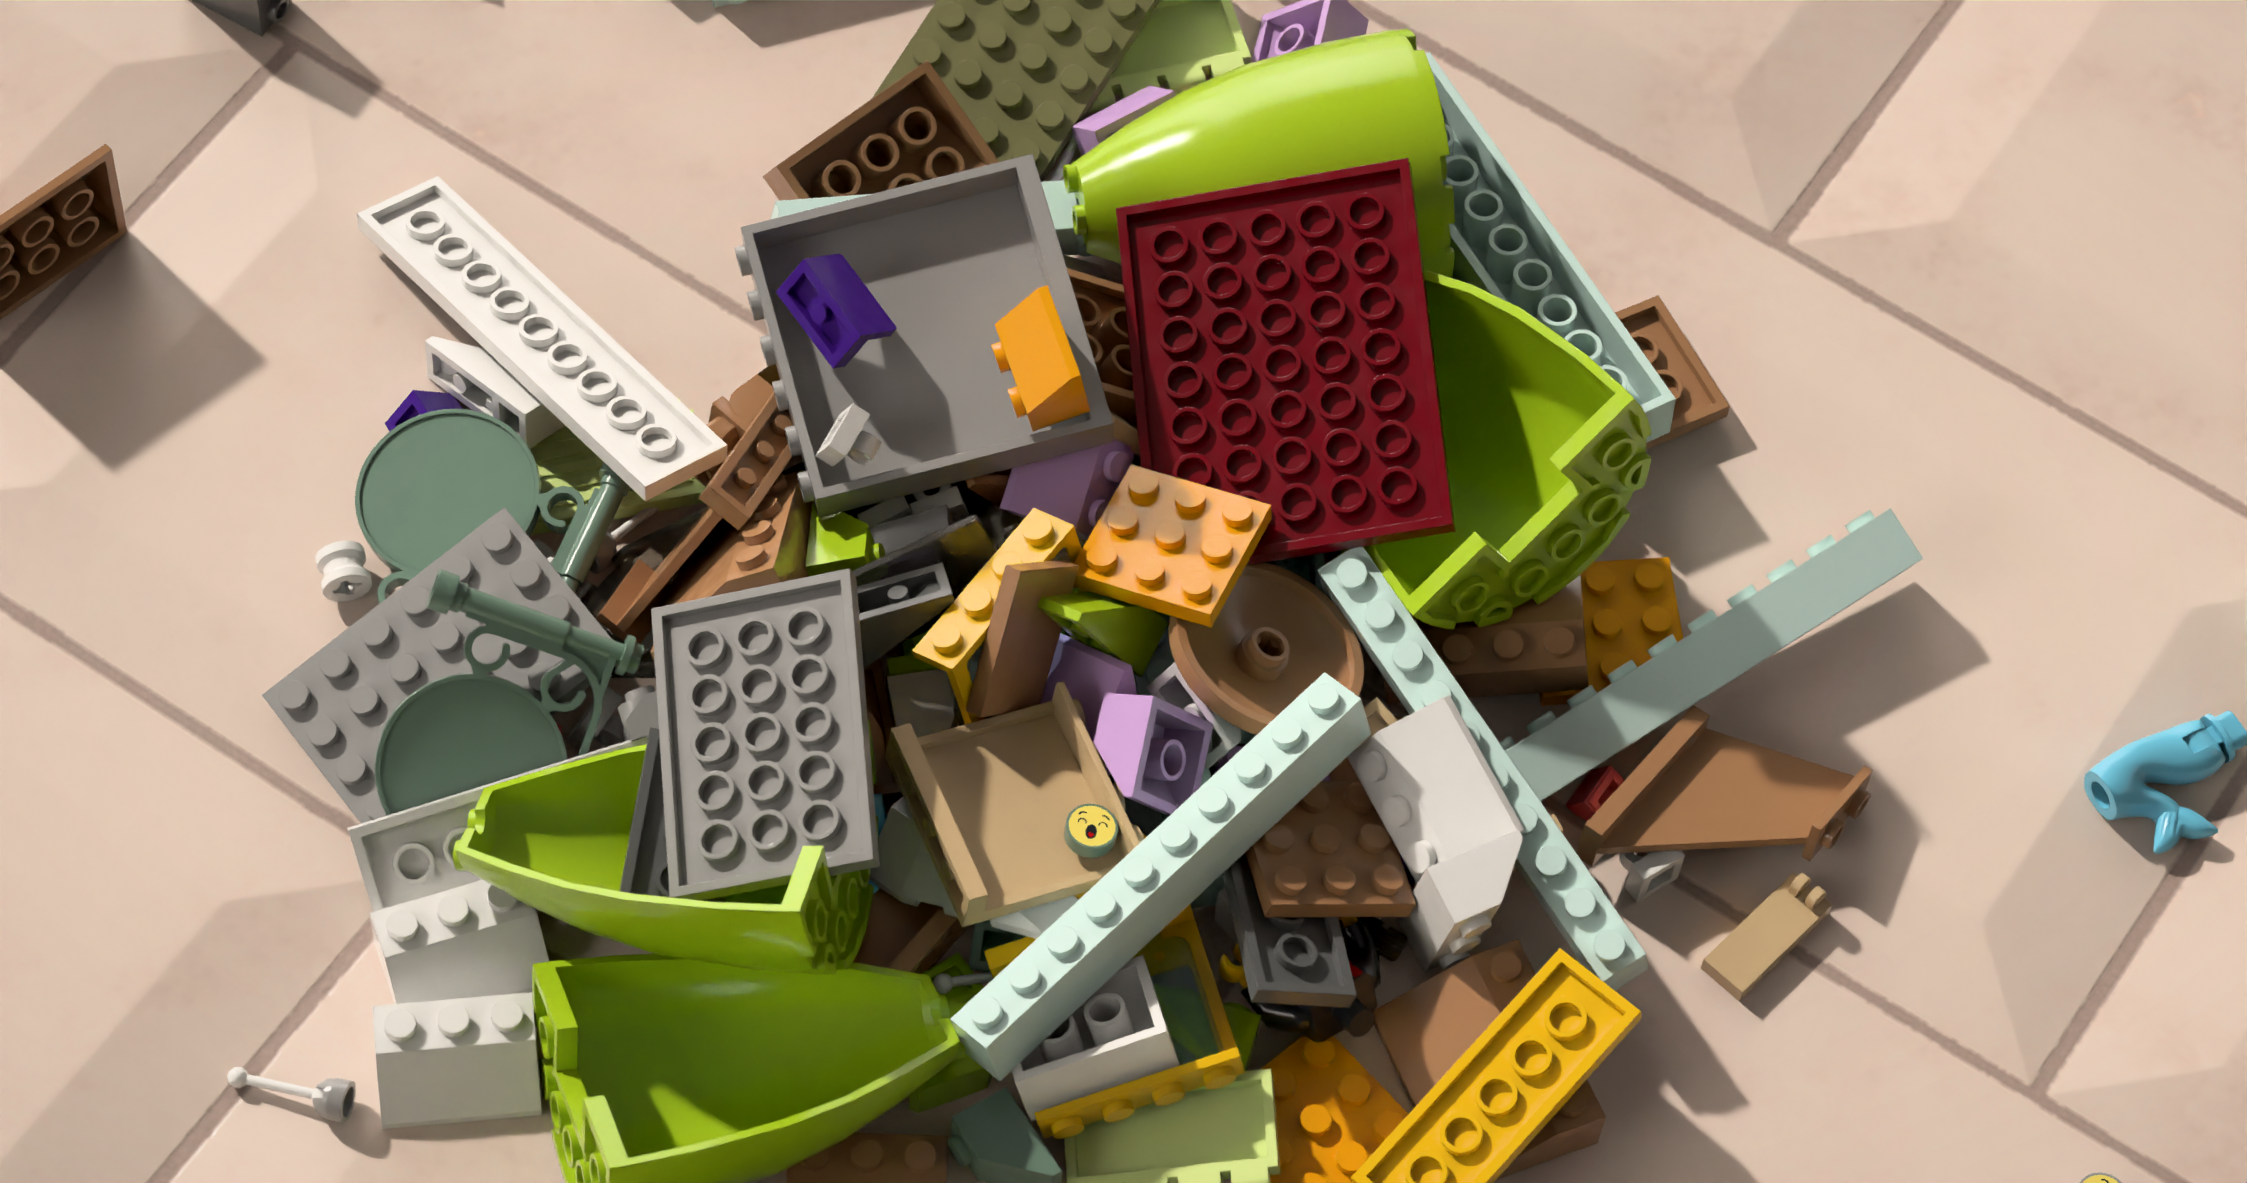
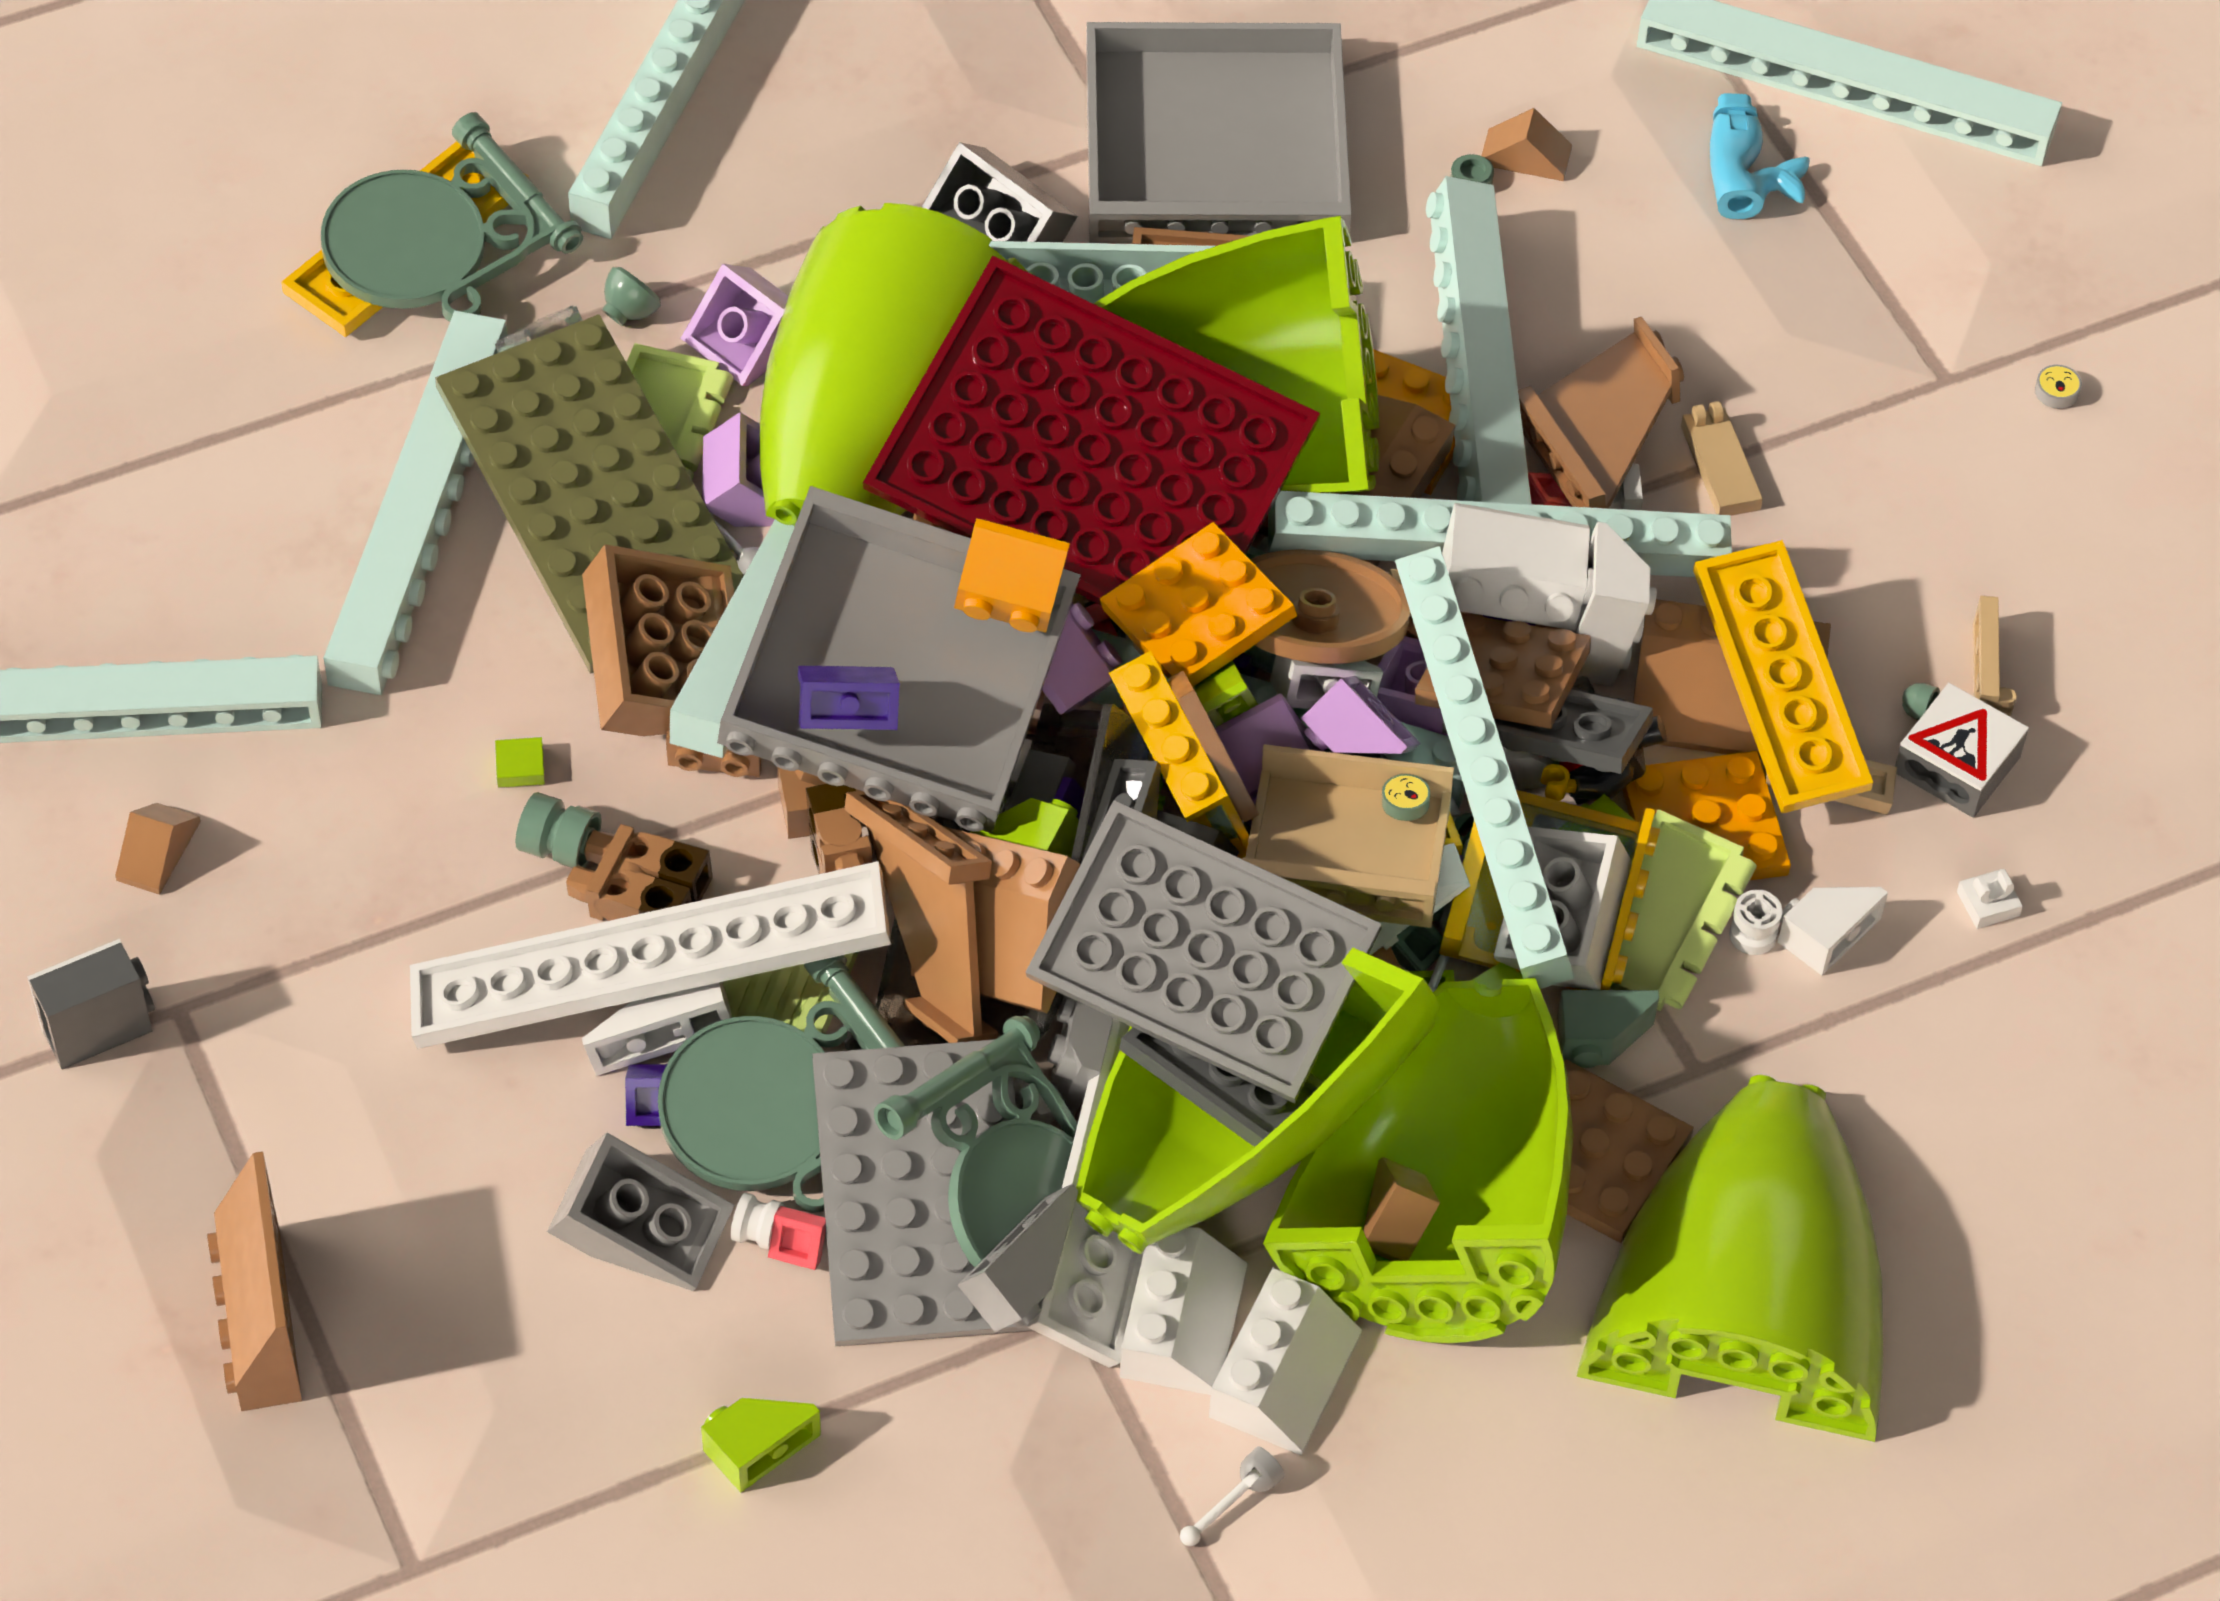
camera: 55 degrees left, 5 degrees down
(122, 685) = (757, 1436): none -> lime slope
(292, 480) = (640, 1214): none -> light grey slope
(346, 604) = (797, 1238): none -> coral tile
(385, 783) = (1023, 1265): none -> light grey slope
(644, 281) = (638, 874): none -> medium nougat hips
(645, 207) = (550, 828): none -> sand green wheel
(676, 1069) = (1398, 1210): none -> medium nougat slope
(709, 143) = (519, 762): none -> lime tile
(848, 439) = (968, 752): white tile -> none
(1593, 174) = (997, 199): none -> dark grey slope
(1833, 305) = (1214, 127): none -> light grey panel
(1959, 547) = (1473, 168): none -> sand green tile
(2029, 579) = (1528, 146): none -> medium nougat slope

